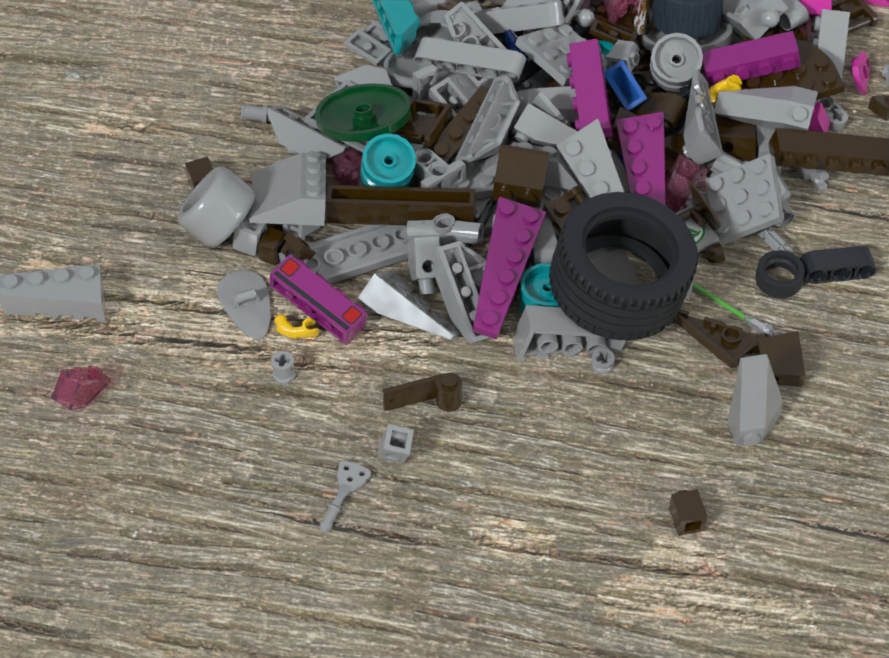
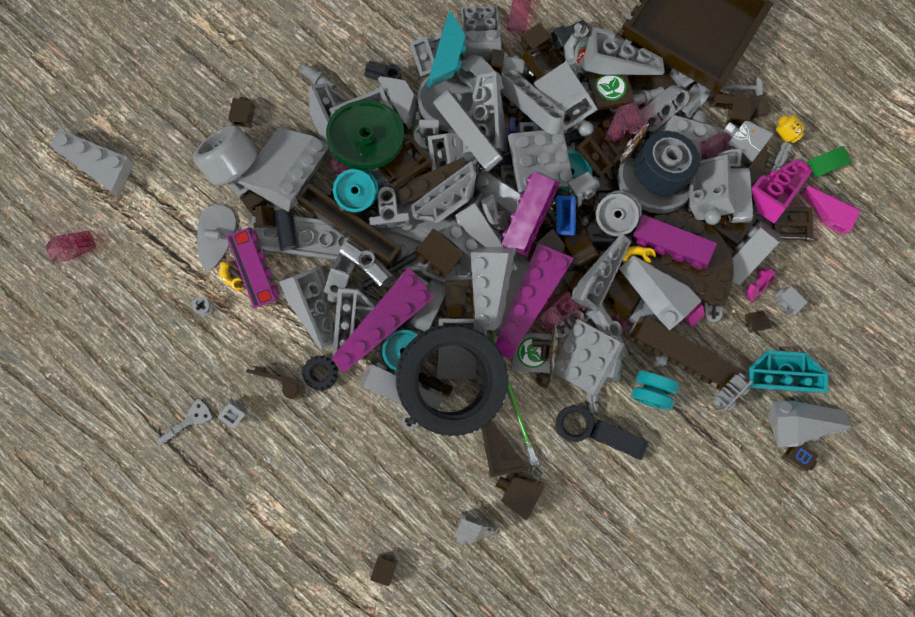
camera: 30 degrees right, 30 degrees up
(325, 79) = (374, 70): none -> black piece
(330, 248) = (286, 229): none -> black brick
(471, 353) = (311, 364): none -> black tyre
(837, 197) = (655, 390): none -> teal wheel

